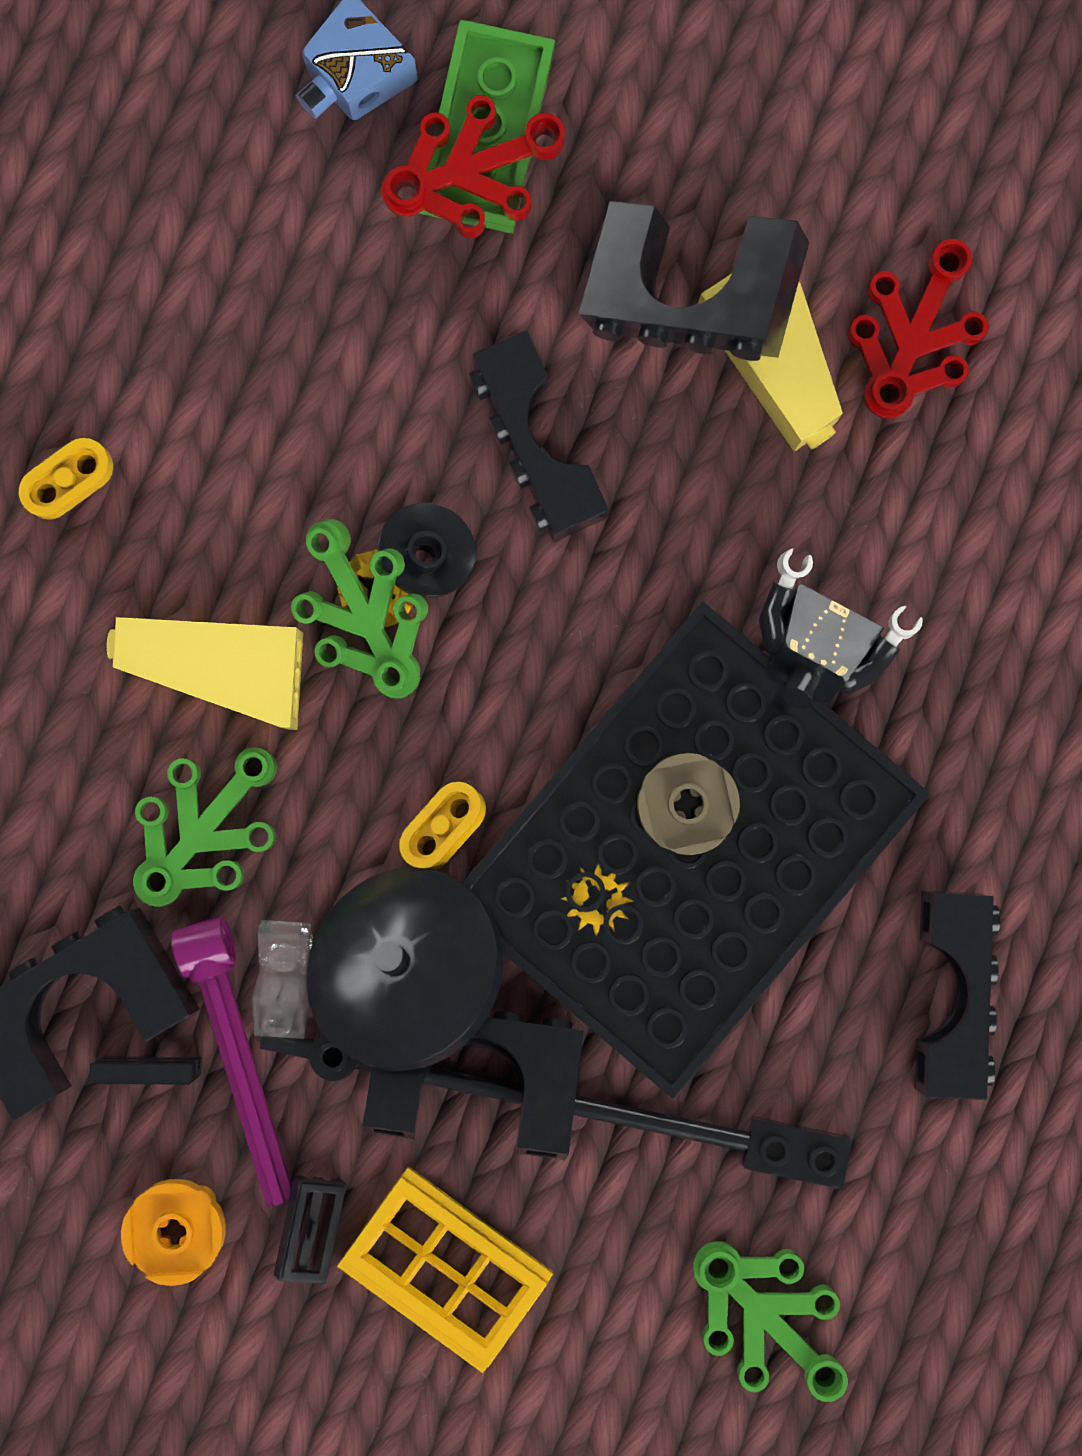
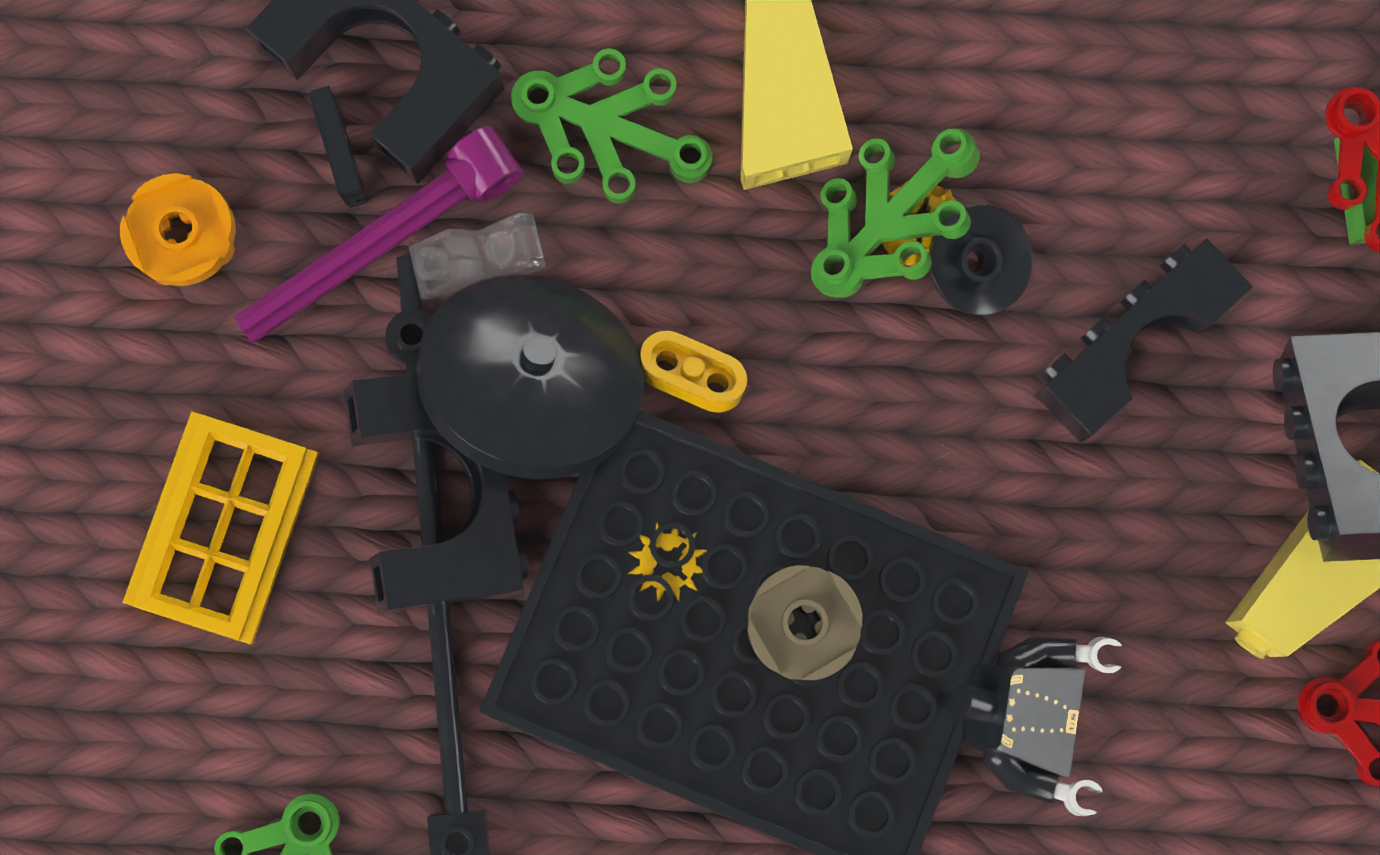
camera: 70 degrees right, 5 degrees down
(292, 1224) = (217, 349): black tile -> none

